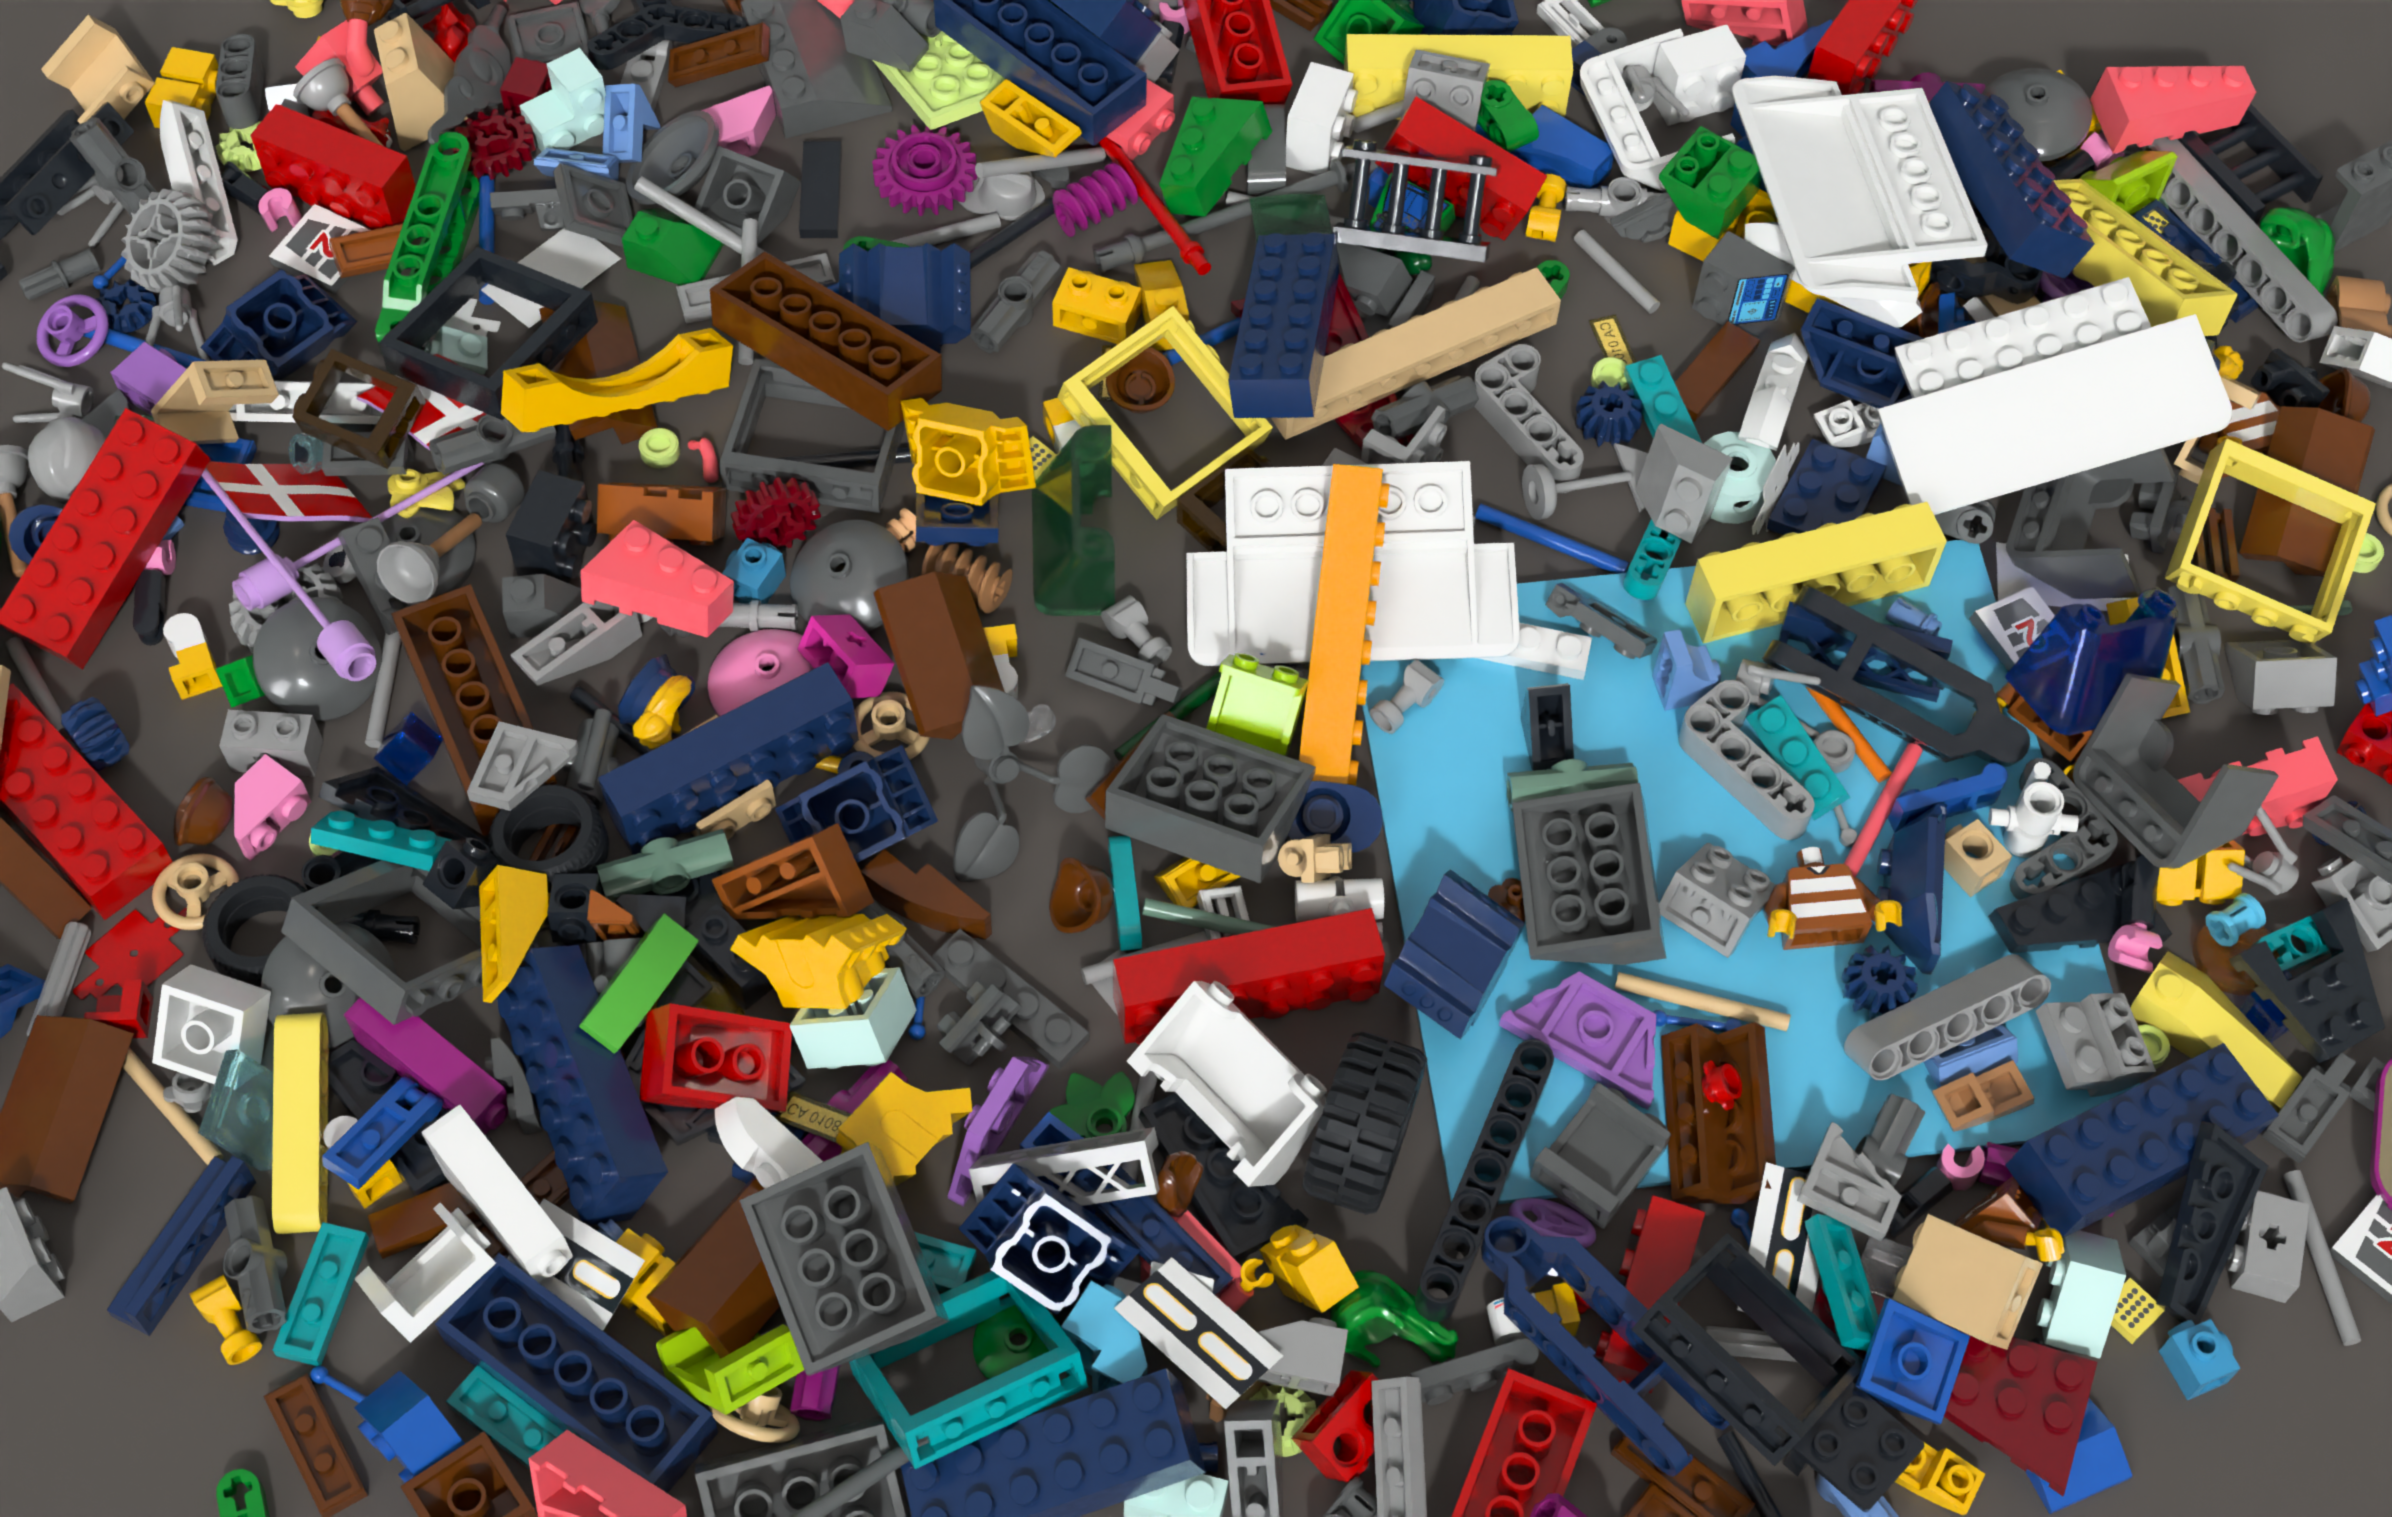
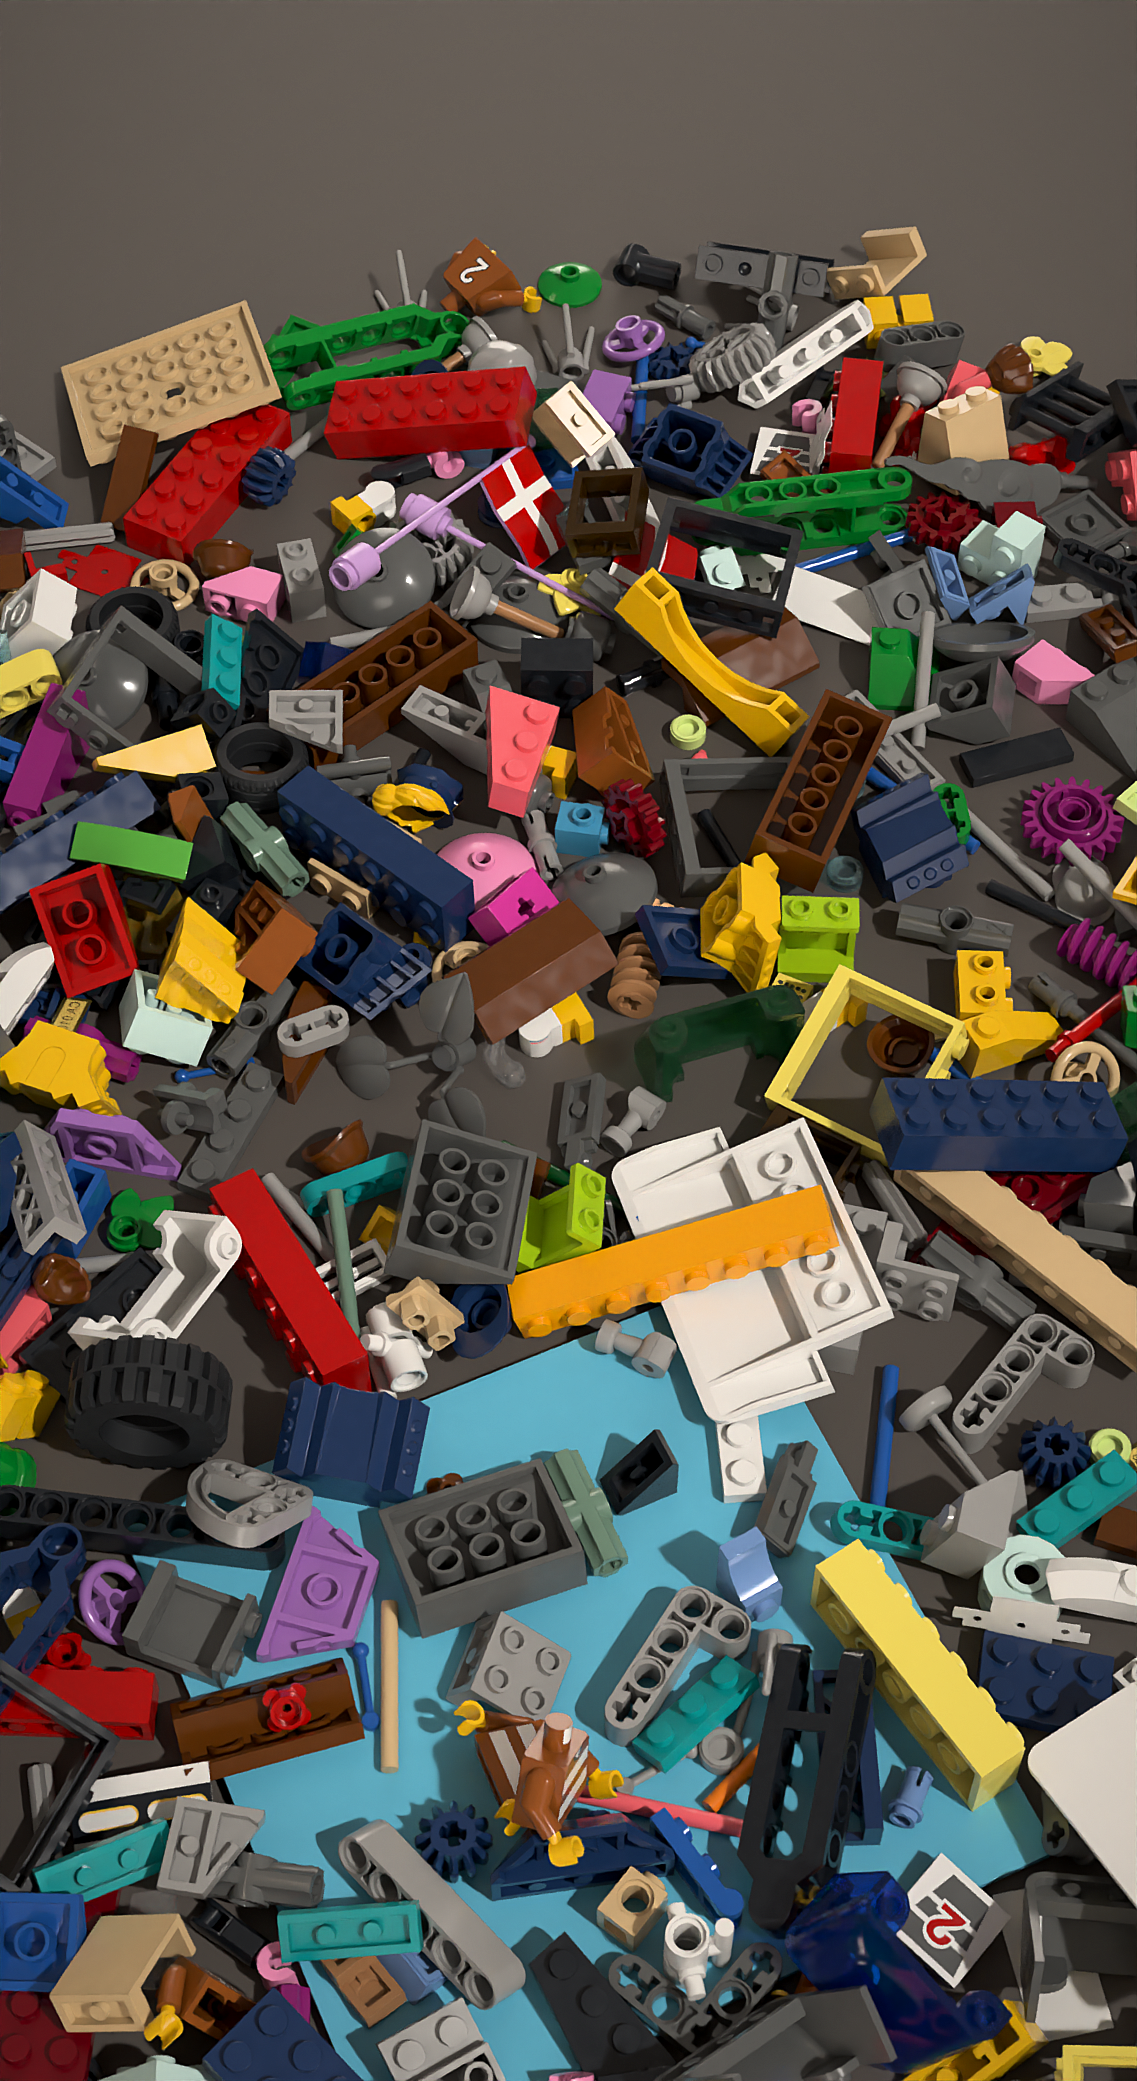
camera: 75 degrees right, 5 degrees down
(347, 212) = (822, 430): none -> white piece
(929, 874) = (313, 1031): none -> light grey beam
(997, 382) = (817, 936): none -> lime panel
(1225, 259) = (1072, 1071): none -> tan piece
(1312, 447) = (894, 1203): none -> light grey axle
(1452, 1094) = (268, 1501): none -> light grey beam
(1884, 861) = (552, 1780): none -> dark orange torso
(1961, 1081) = (350, 1931): none -> teal plate

